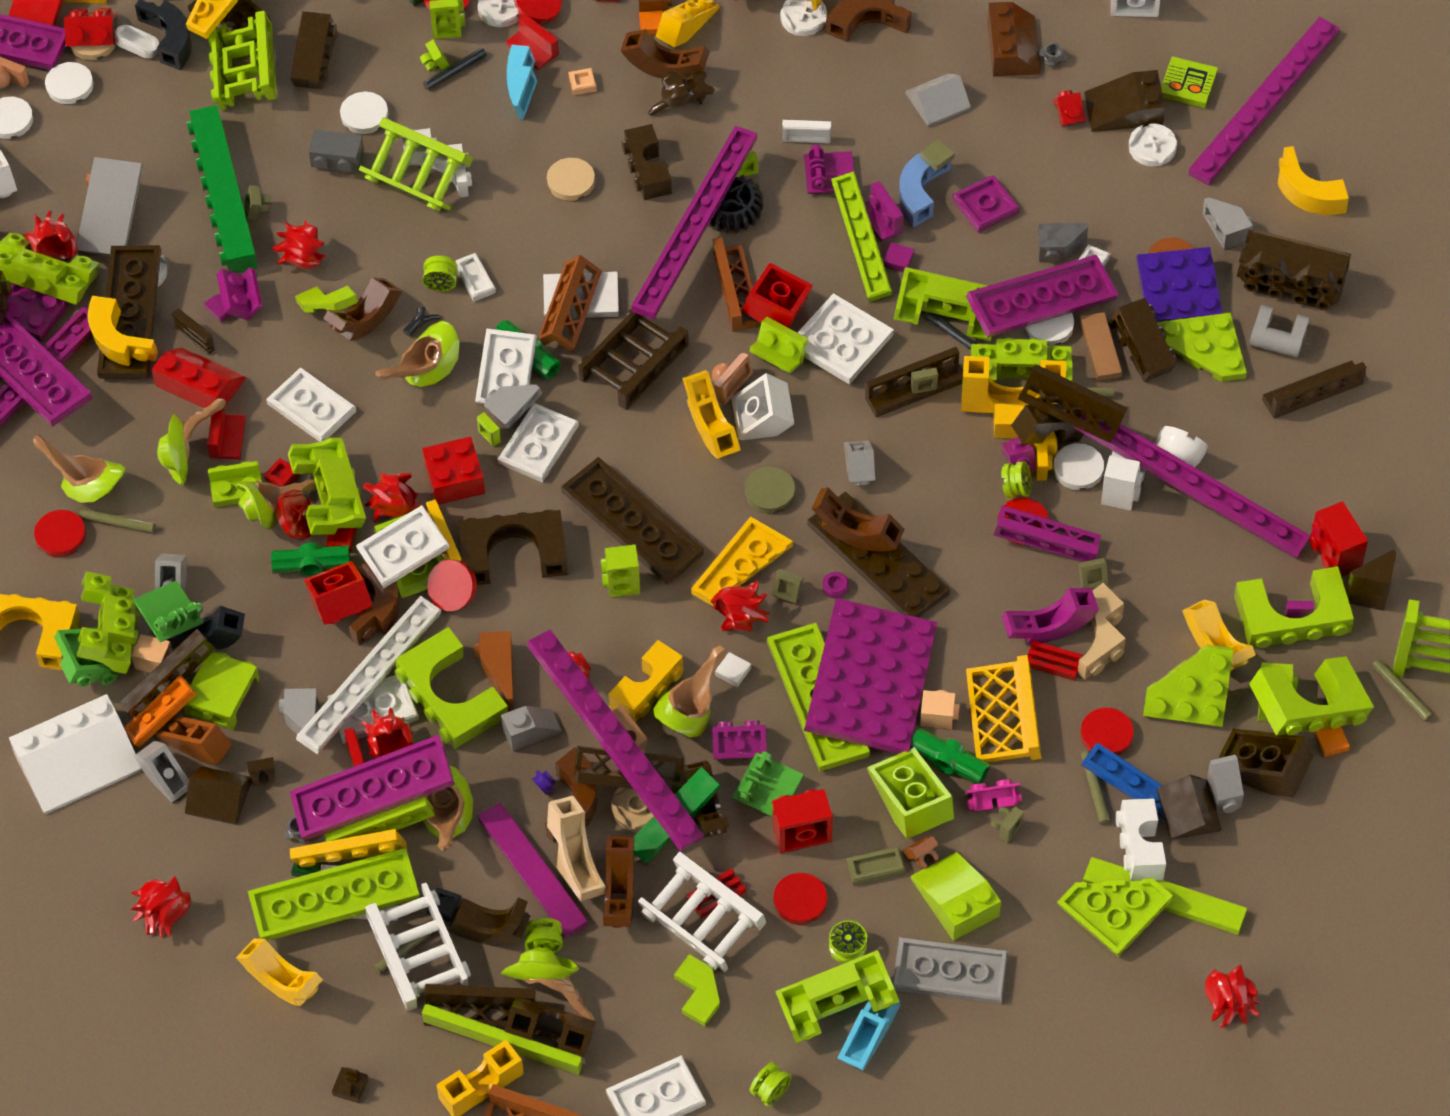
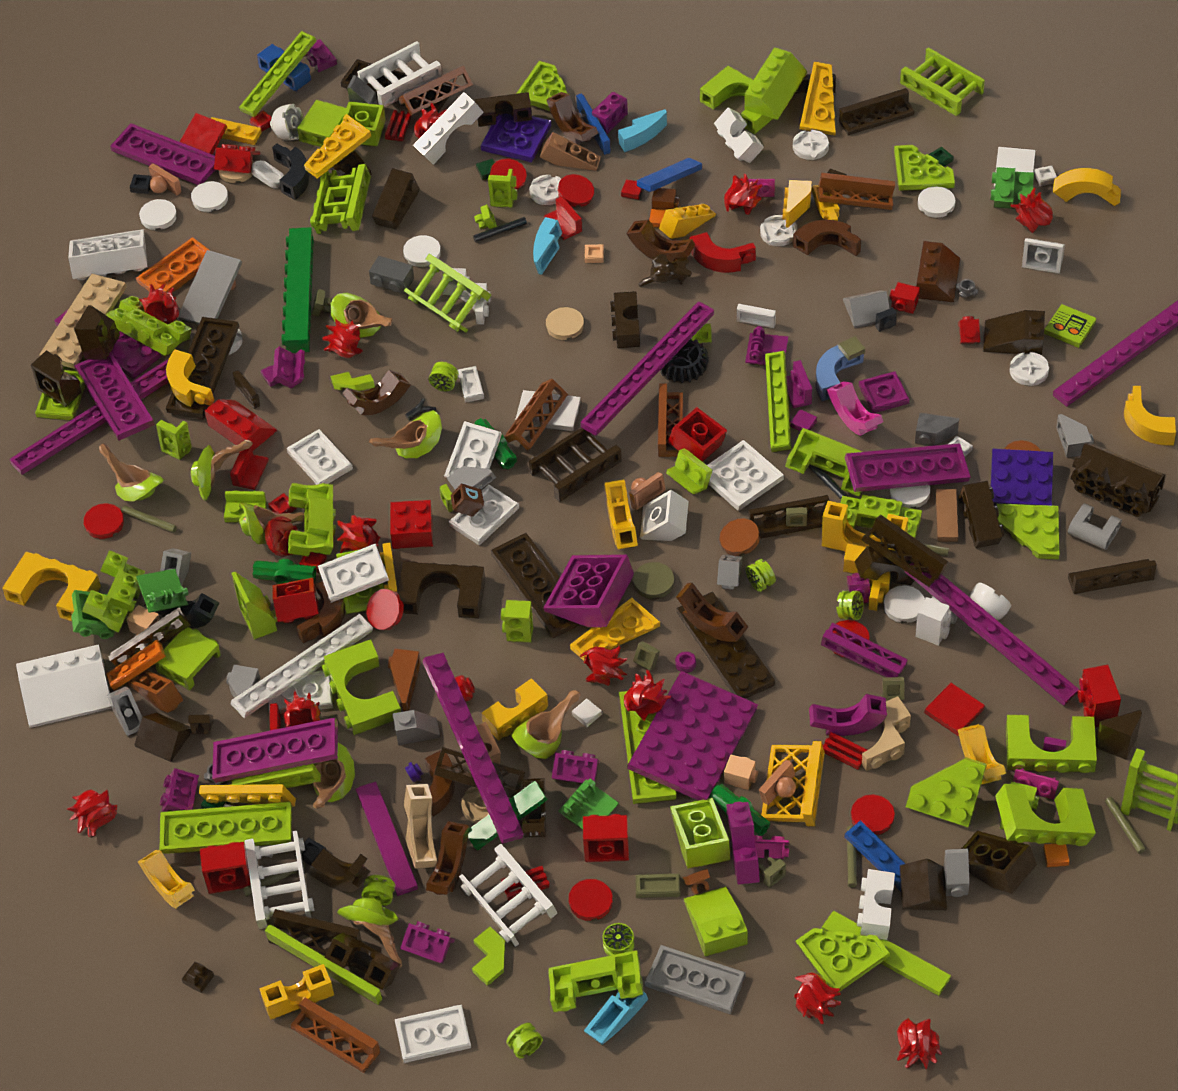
camera: 15 degrees right, 5 degrees down
(53, 185) = (175, 268): none -> orange tile
(122, 413) = (174, 440): none -> lime bracket
(260, 860) = (179, 791): none -> magenta bracket
(288, 612) = (254, 607): none -> lime slope
(301, 203) = (351, 307): none -> hat
(349, 943) = (225, 867): none -> red brick
(517, 428) = (467, 500): none -> reddish brown brick
(619, 988) = (426, 943): none -> magenta bracket
(698, 514) = (590, 589): none -> magenta slope
(742, 64) = (721, 259): none -> red arch
(804, 637) = (645, 696): none -> red hair
(860, 417) = (739, 537): none -> dark orange tile
(900, 460) = (760, 575): none -> lime wheel
(955, 235) = (851, 410): none -> dark pink arch
(965, 786) = (743, 843): none -> magenta arch
(966, 110) = (885, 319): none -> black plate
(981, 78) = (904, 297): none -> red brick
(990, 715) = (779, 783): none -> nougat tile
(1099, 964) = (815, 996): none -> red hair
(1170, 585) = (954, 708): none -> red tile
(1301, 659) = (1045, 785): none -> dark pink hinge

